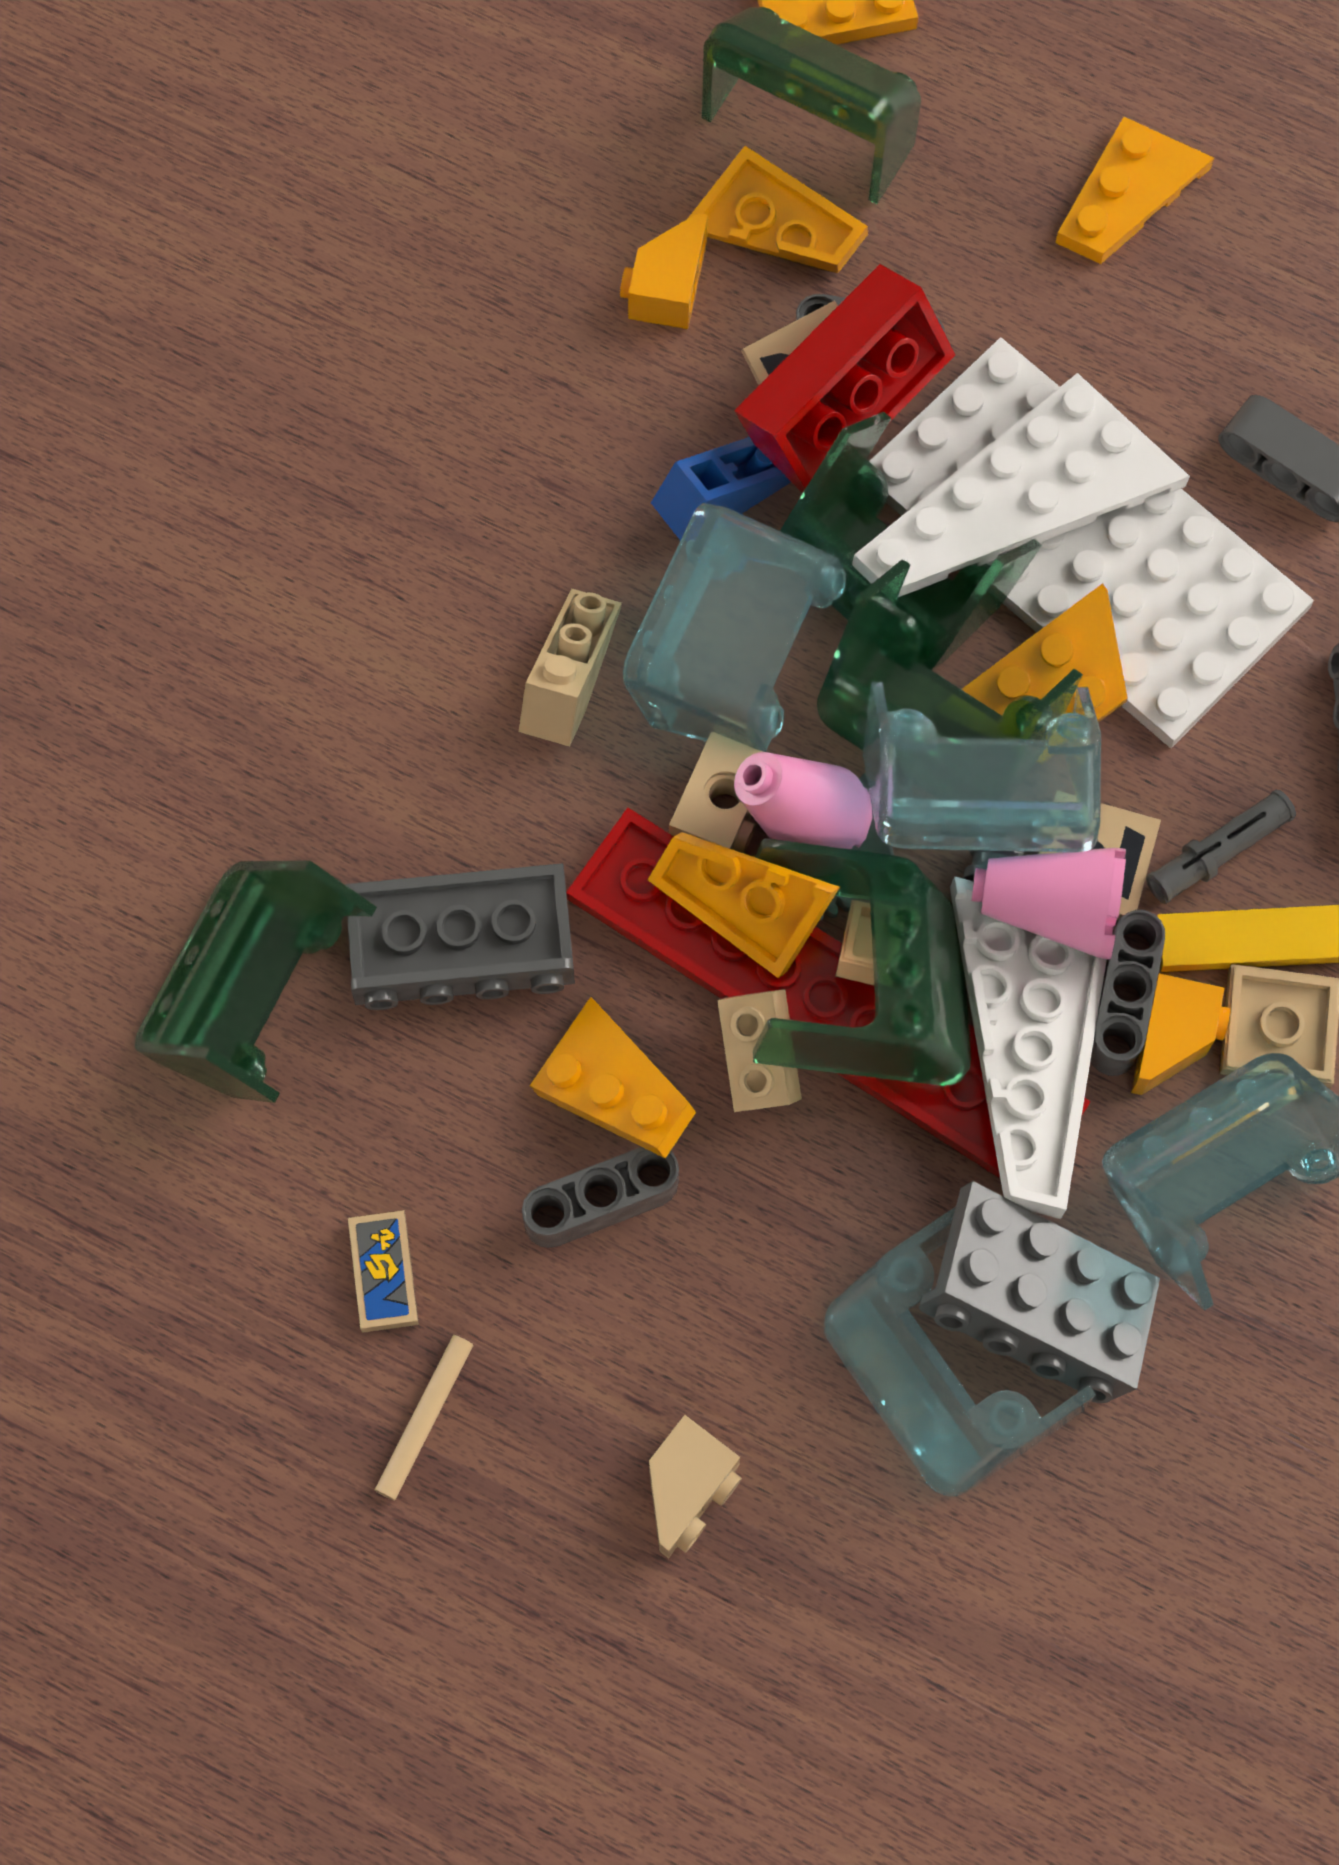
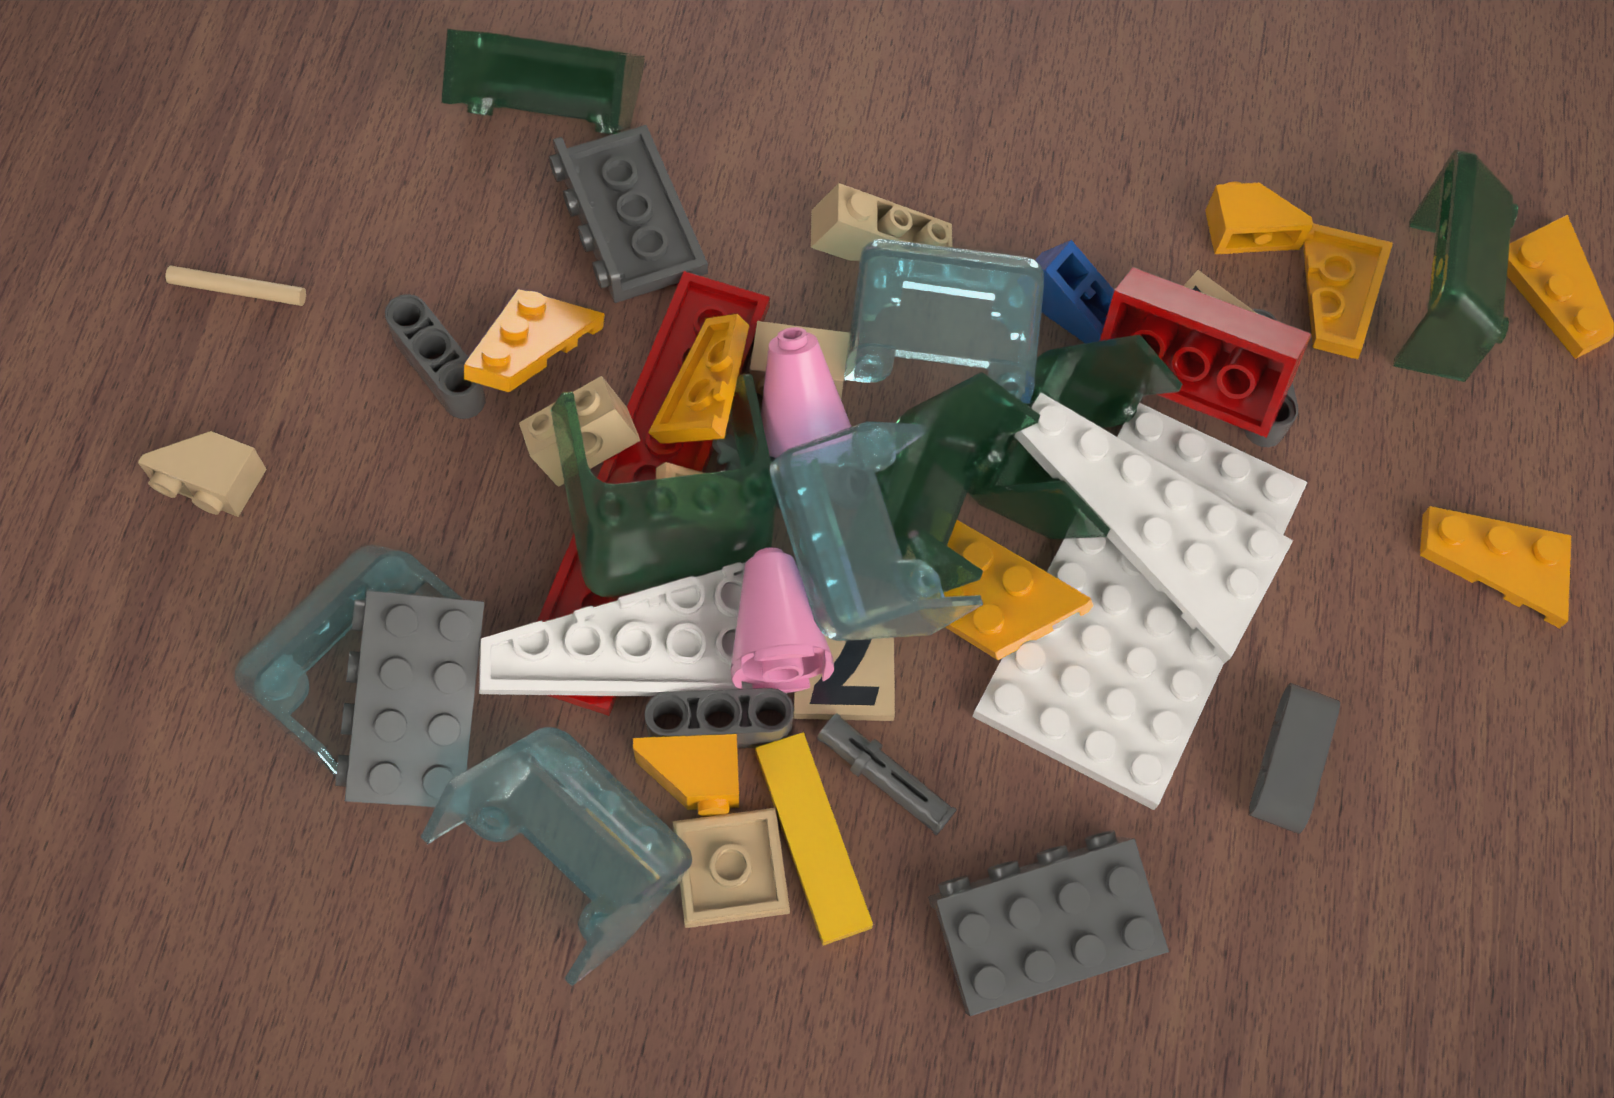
camera: 70 degrees right, 5 degrees down
(383, 1271) = (346, 230): tile -> none

